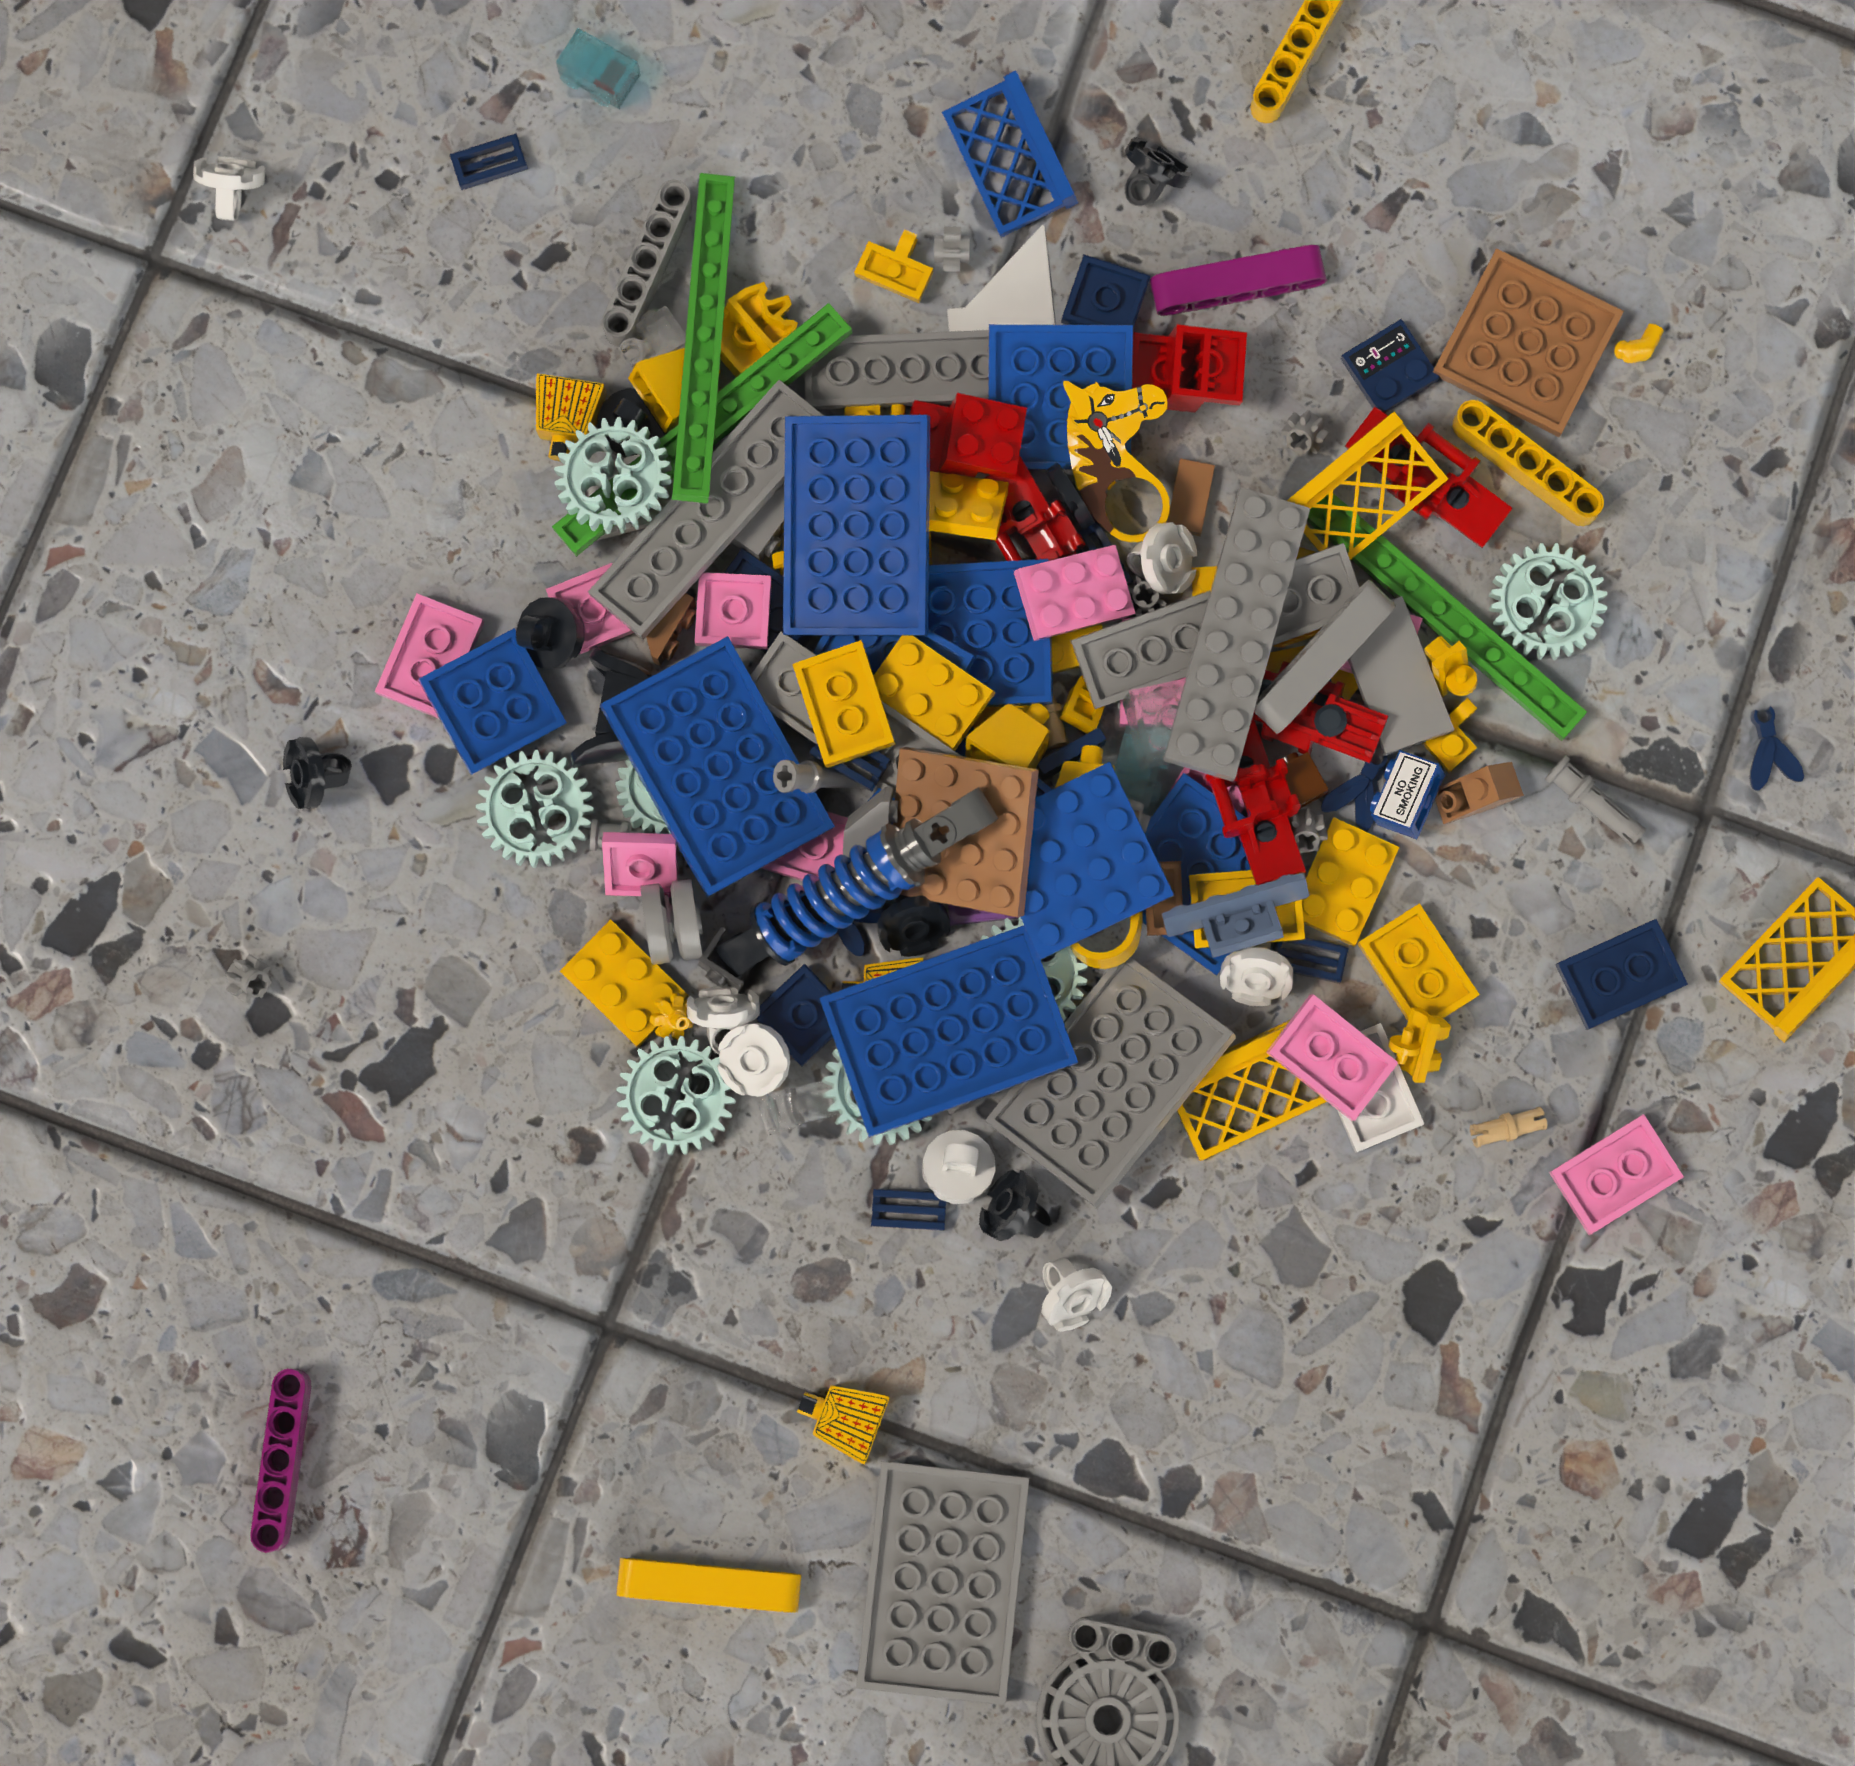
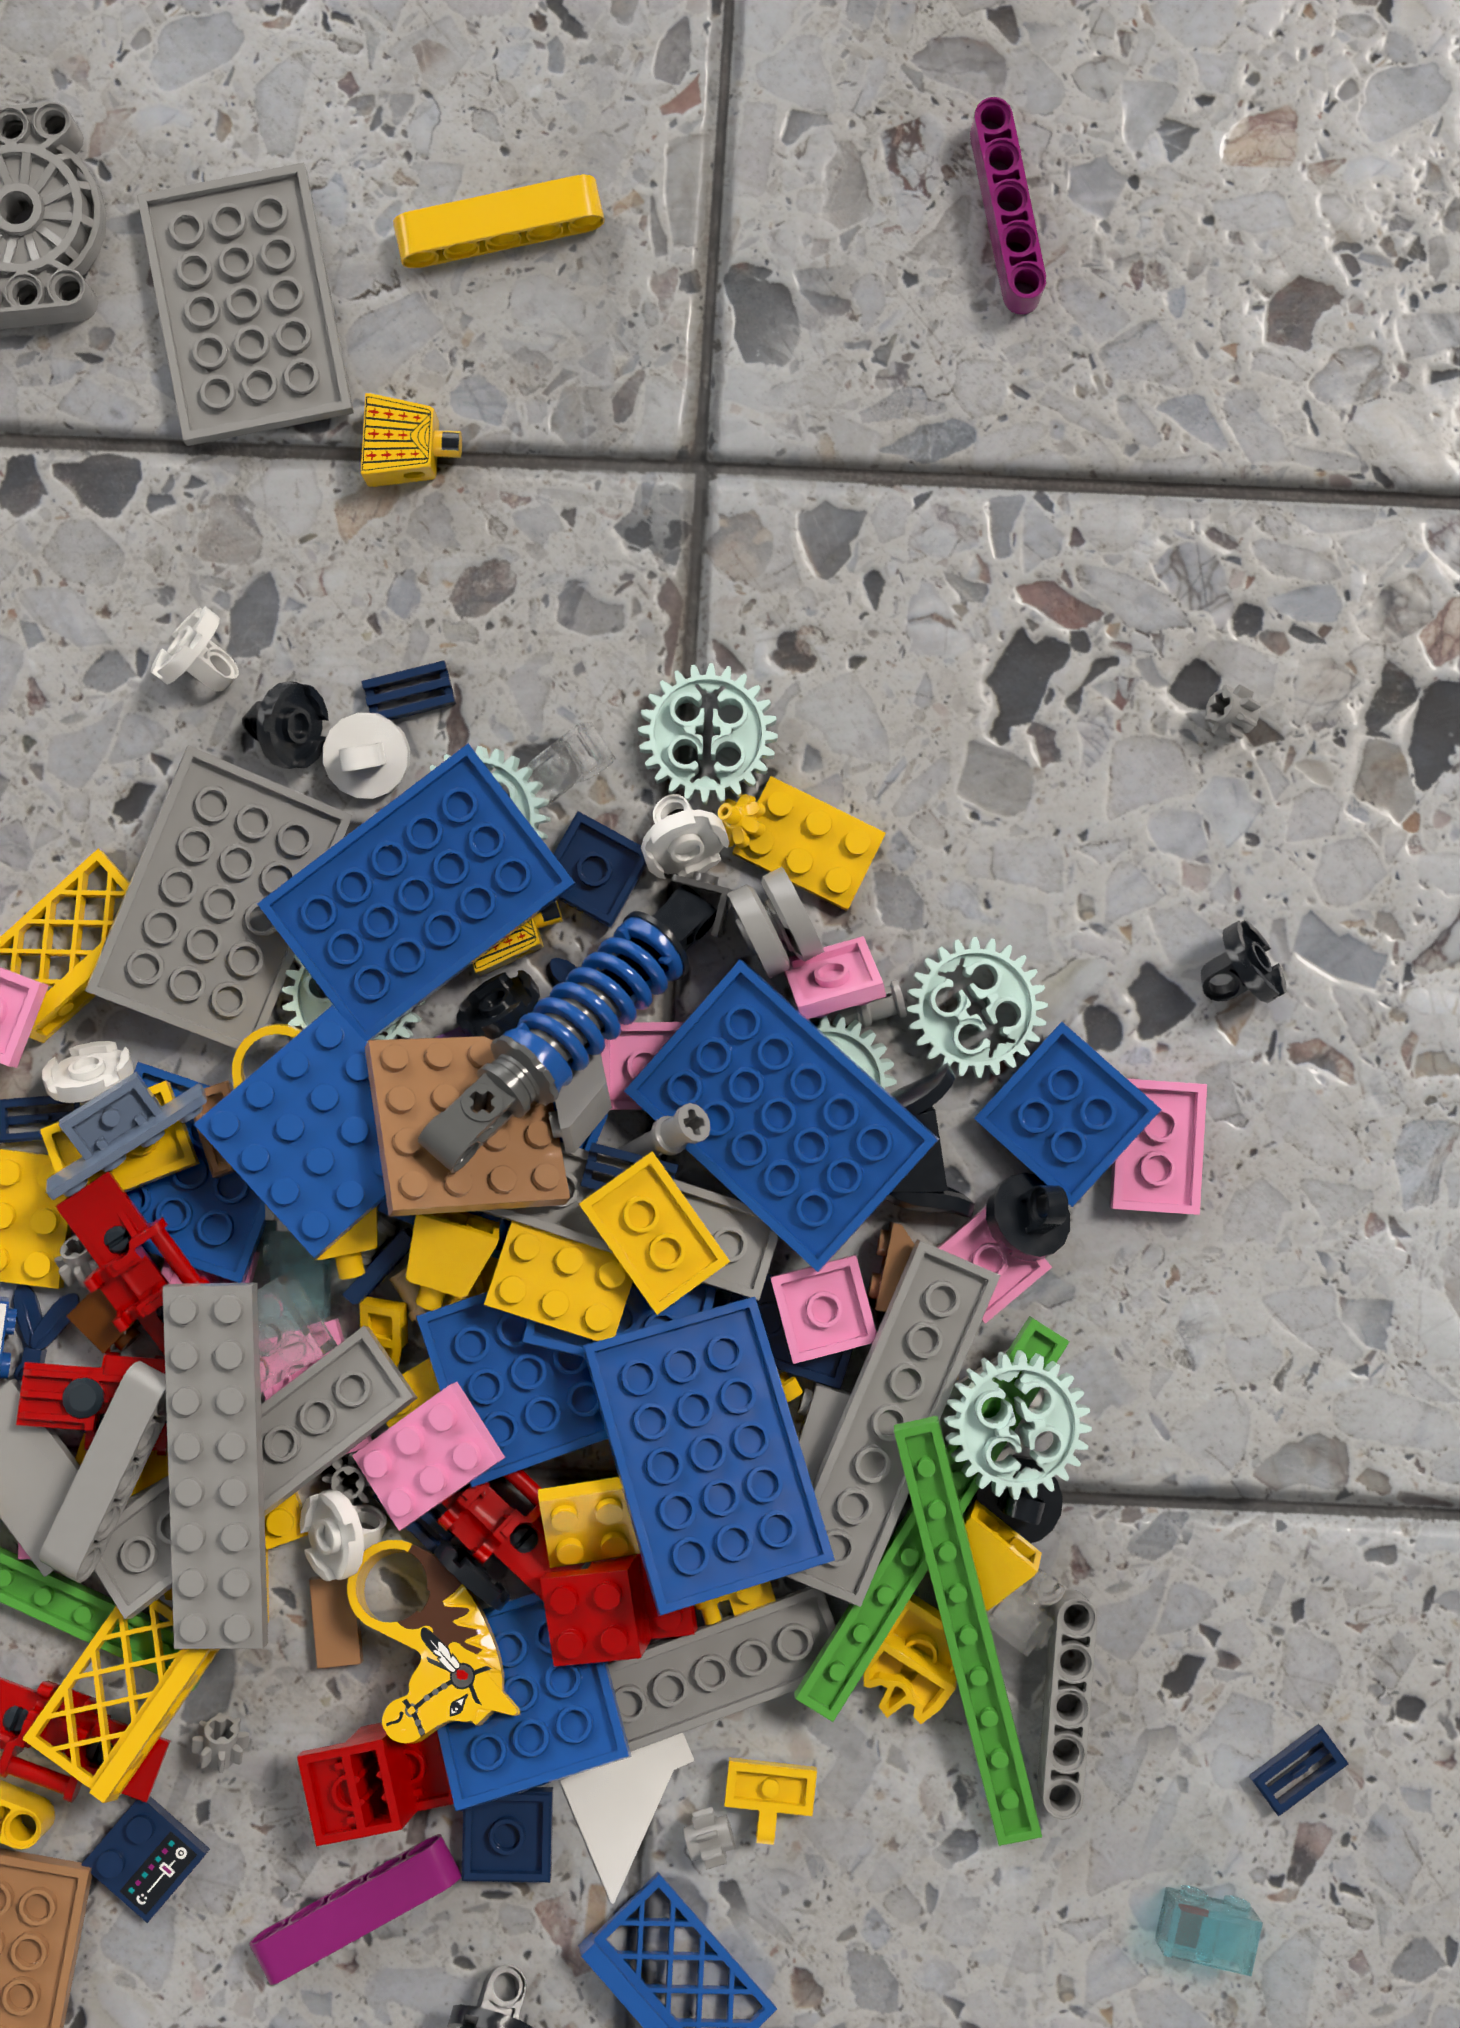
camera: 160 degrees right, 5 degrees up
(565, 407) = (1102, 1490): yellow torso -> none
(753, 1059) = (629, 792): white tile -> none

